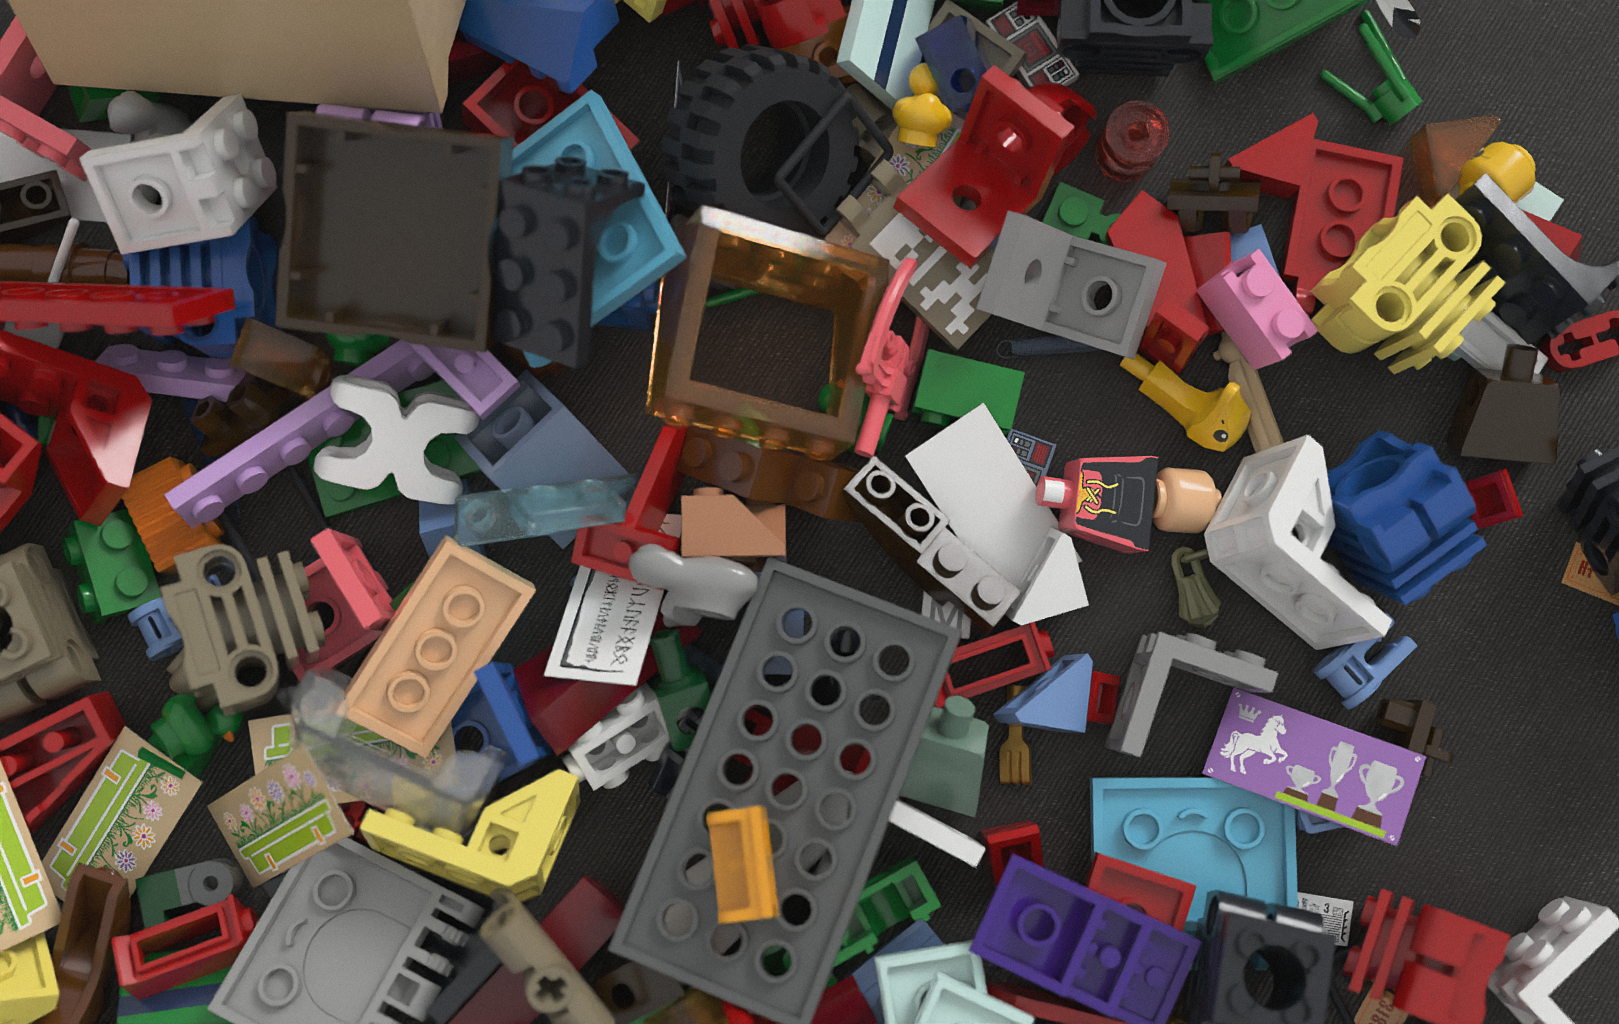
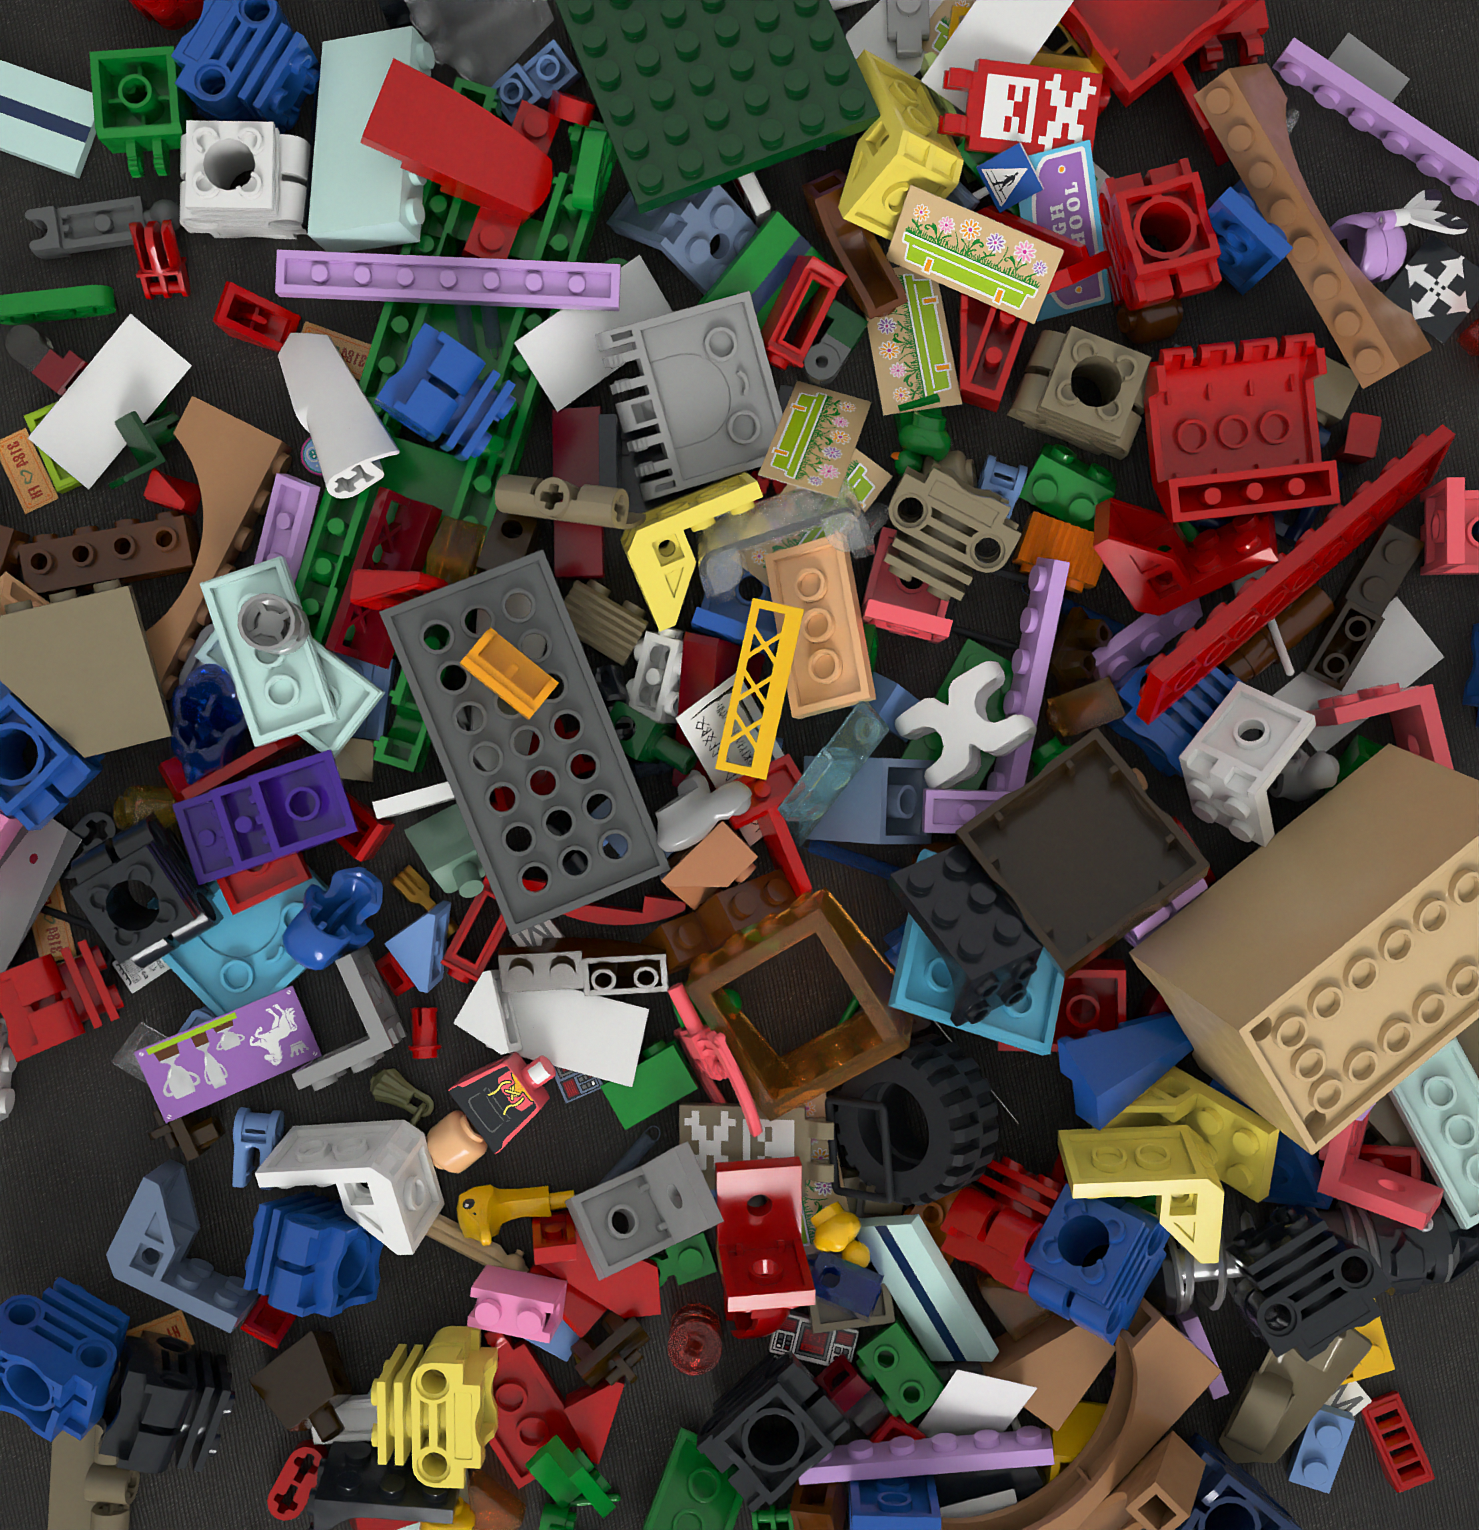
camera: 140 degrees right, 5 degrees up
(525, 624) = (776, 691): none -> yellow fence
(613, 420) = (834, 859): none -> blue piece
(624, 829) = (603, 622): none -> dark tan brick
(821, 539) = (654, 908): none -> red slope
(957, 918) = (357, 761): none -> dark tan slope
(1108, 794) = (334, 918): none -> blue head
(1124, 621) = (424, 1033): none -> red pin
(1349, 130) = (567, 1476): none -> green bracket
(1382, 854) = (139, 1039): none -> clear slope
(1537, 656) = (153, 1250): none -> sand blue bracket

